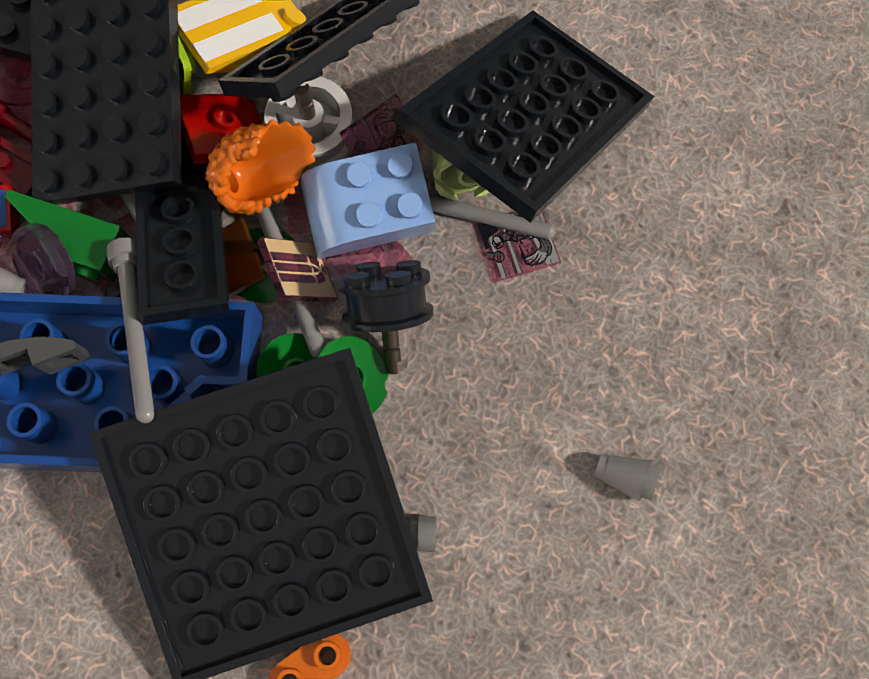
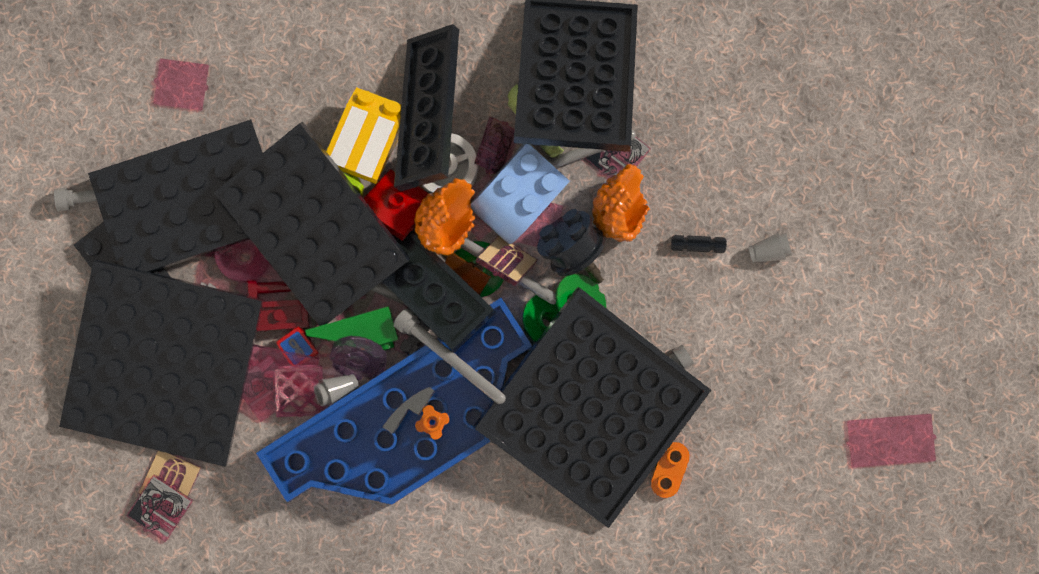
camera: 35 degrees left, 10 degrees up
(65, 393) = (424, 423): none -> orange plate
(479, 296) = (620, 205): none -> orange piece
(542, 409) = (698, 243): none -> black axle

